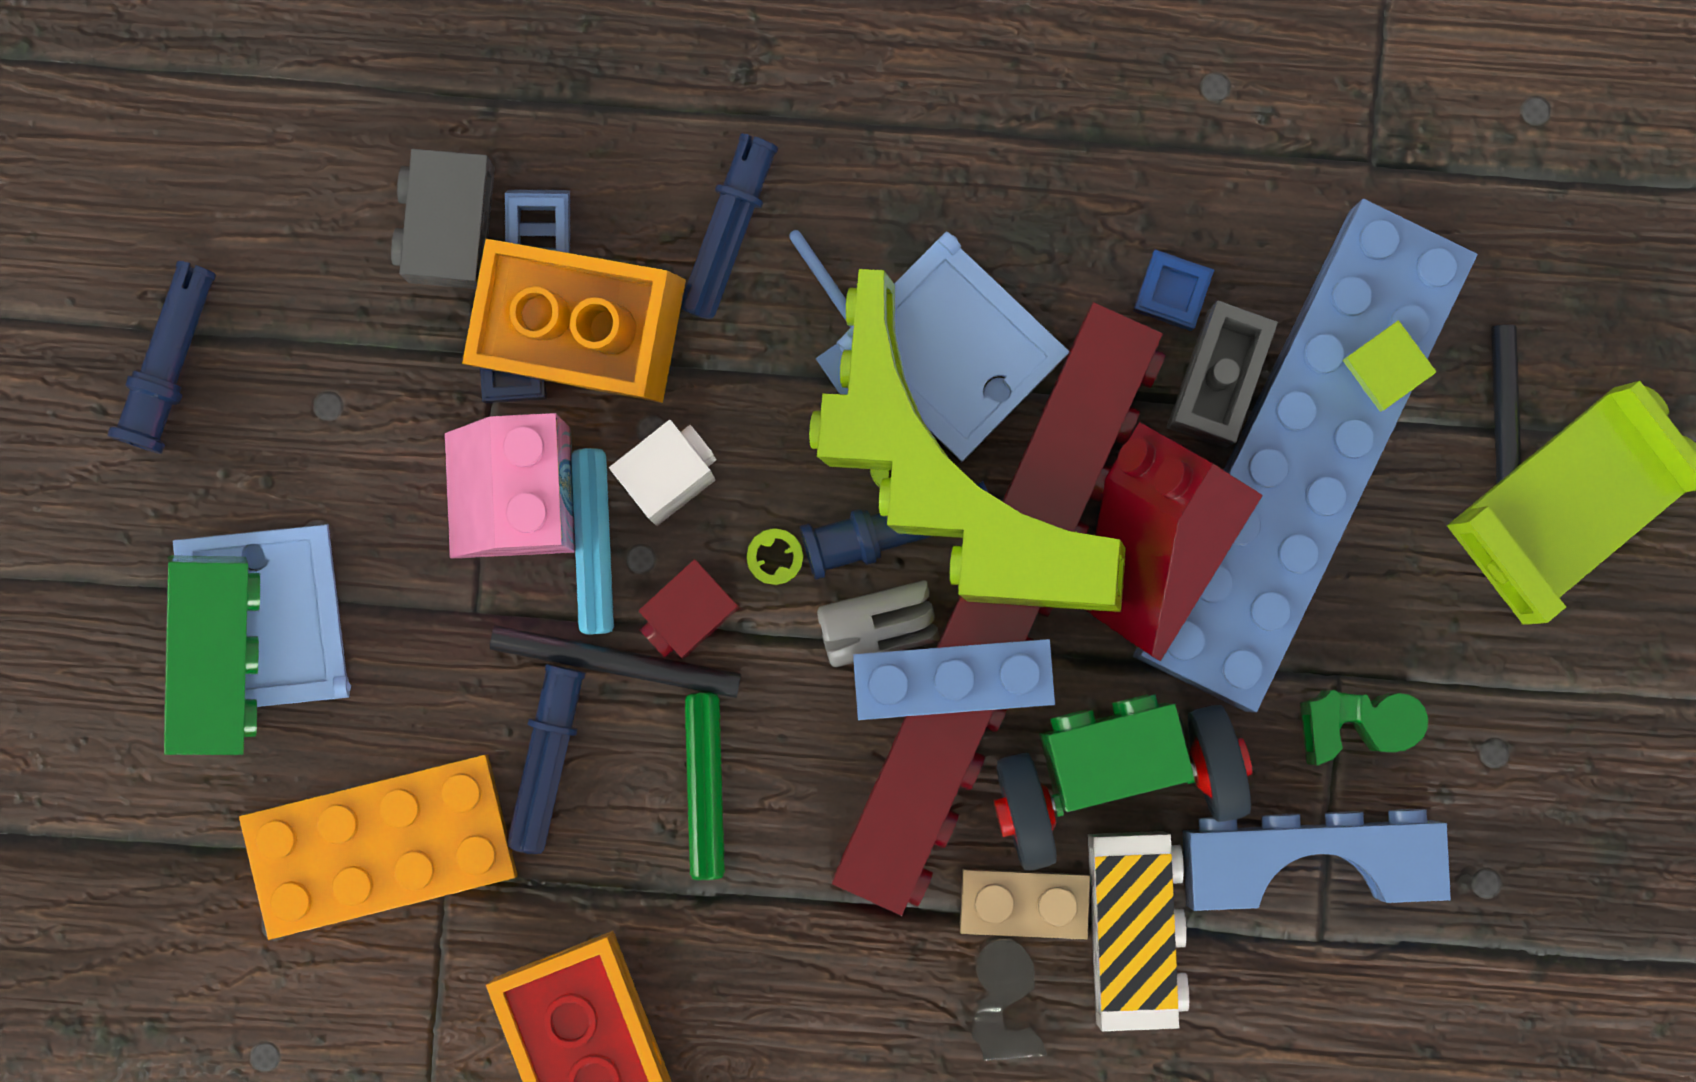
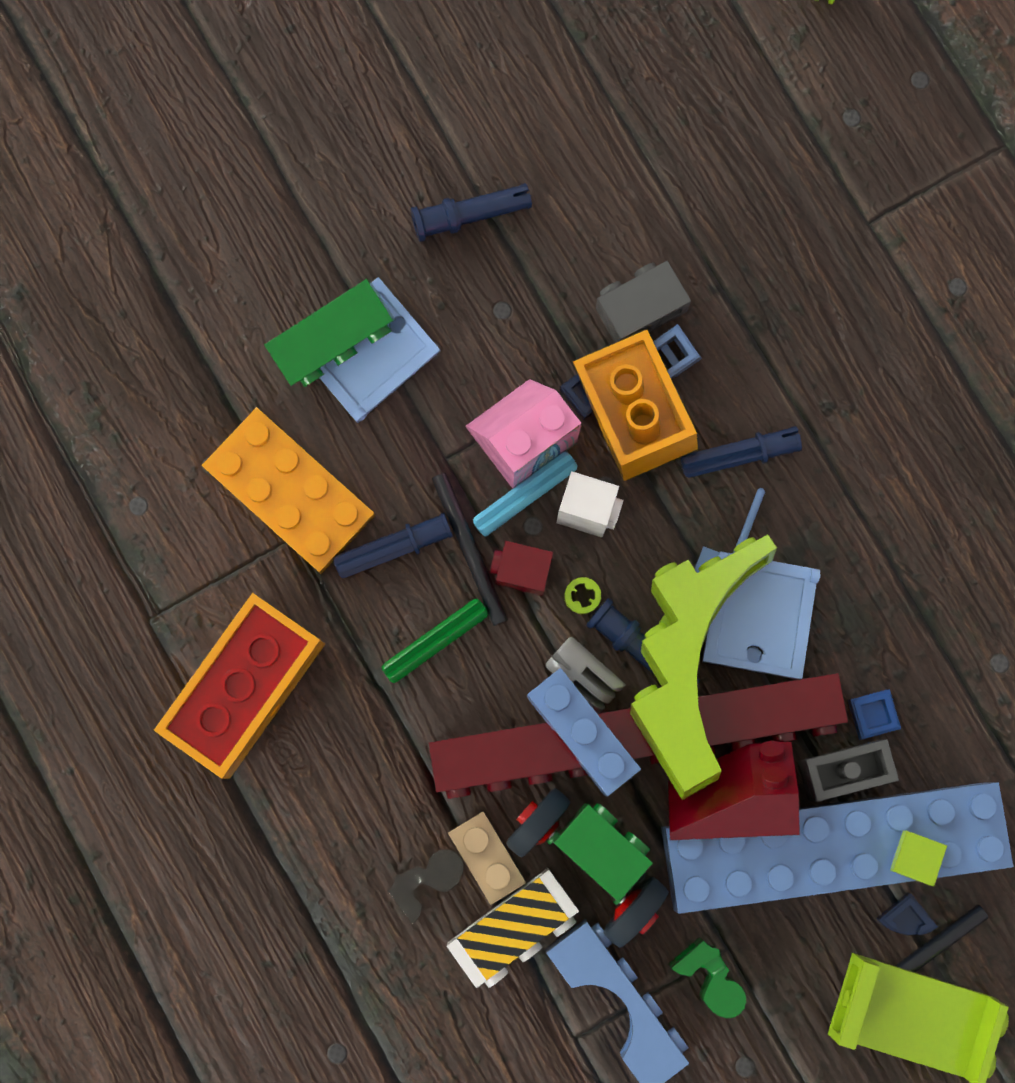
camera: 60 degrees right, 5 degrees down
(1449, 426) = (907, 917): none -> dark blue tile

